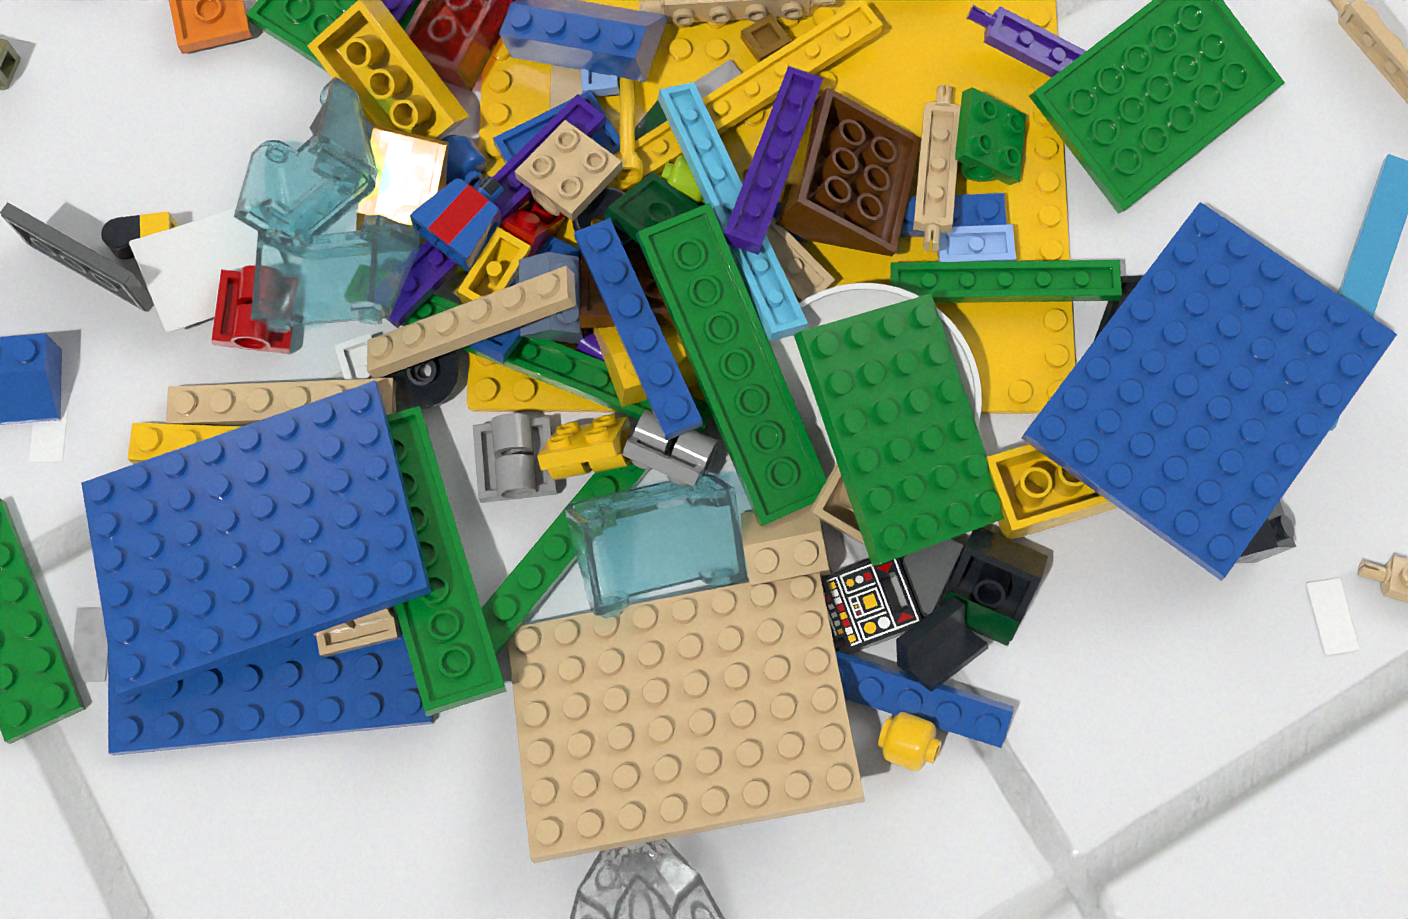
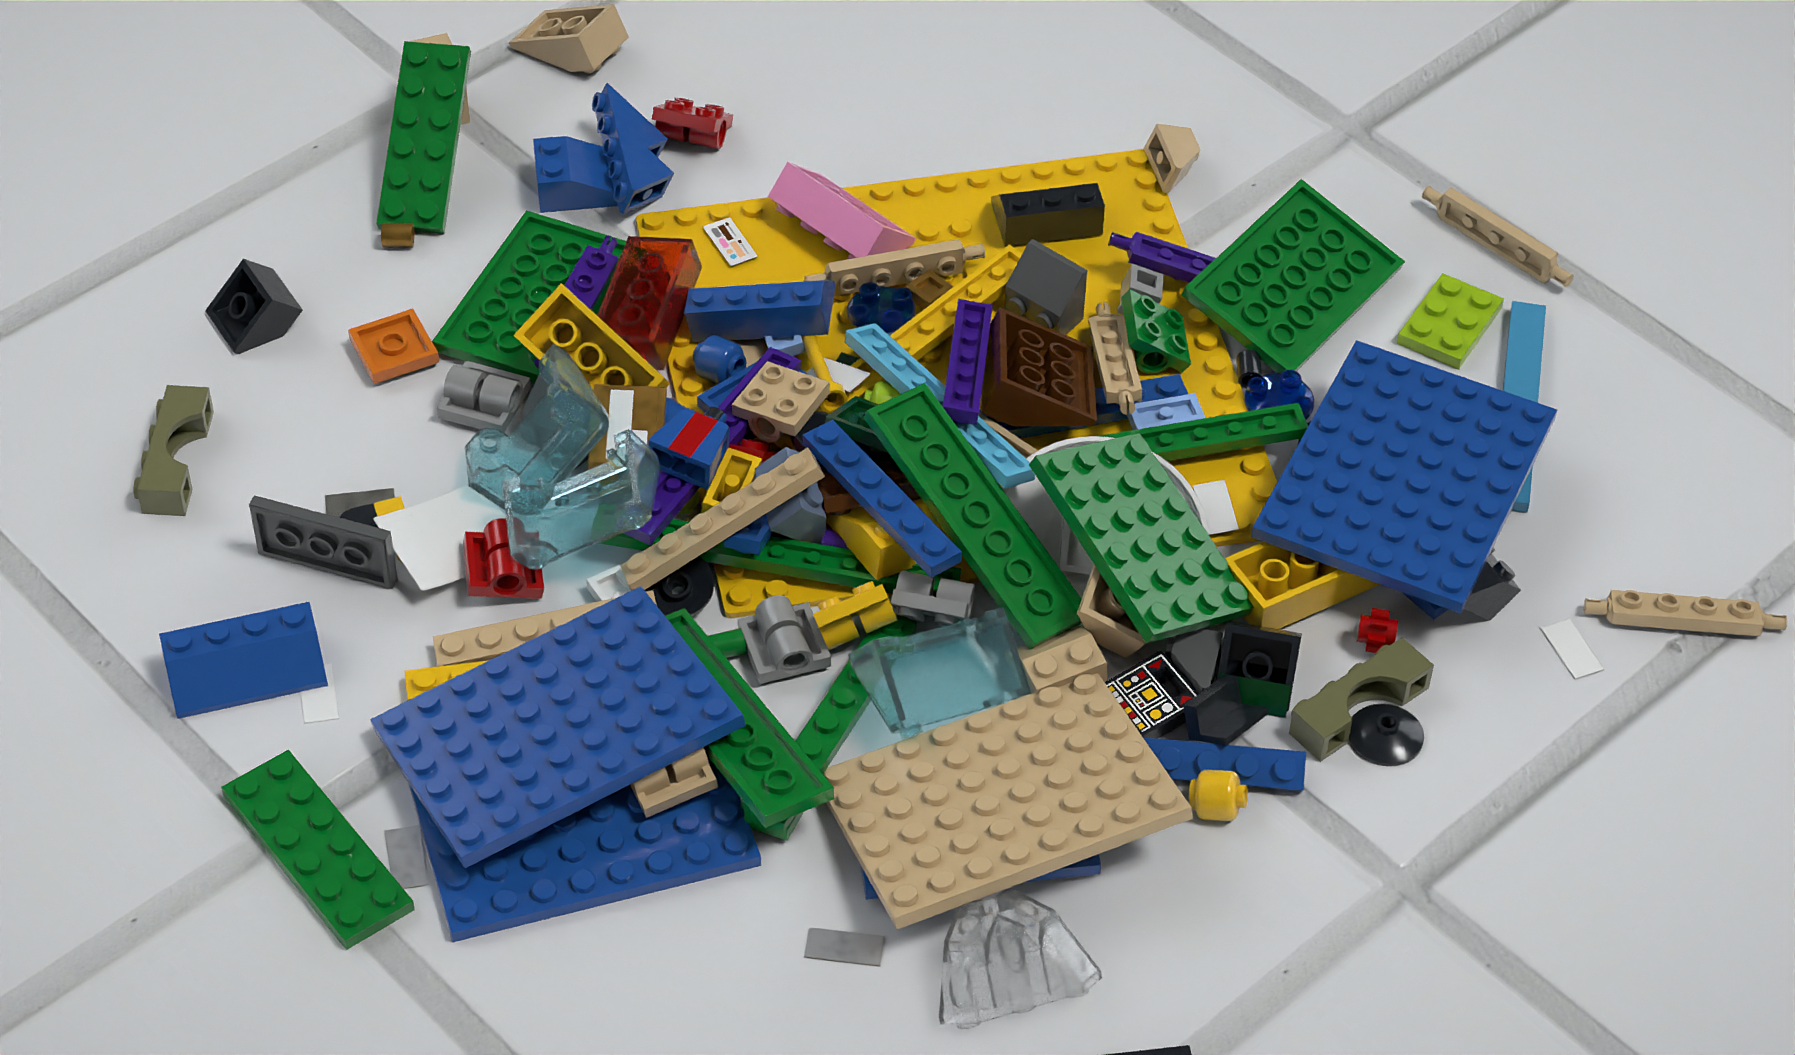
camera: 15 degrees left, 25 degrees down
(137, 199) = (339, 503): none -> clear smoke sticker
(281, 92) = (482, 396): none -> light grey plate
(456, 450) = (730, 642): none -> green hinge
(491, 840) = (844, 946): none -> flat silver sticker
(526, 92) = (718, 359): none -> blue head
(649, 139) = (843, 374): none -> white sticker
(710, 53) = (881, 305): none -> clear blue dish
(885, 67) = (1047, 289): none -> dark grey slope
(990, 74) = (1143, 282): none -> light grey brick
(1000, 369) = (1216, 506): none -> white sticker
(1080, 194) = (1248, 366): none -> black hinge
(1090, 699) = (1383, 745): none -> black dish
(1103, 234) = (1279, 390): none -> clear blue dish
(1129, 565) = (1377, 630): none -> red gear
(1133, 624) = (1392, 675): none -> olive arch
(1314, 165) = (1450, 321): none -> lime plate

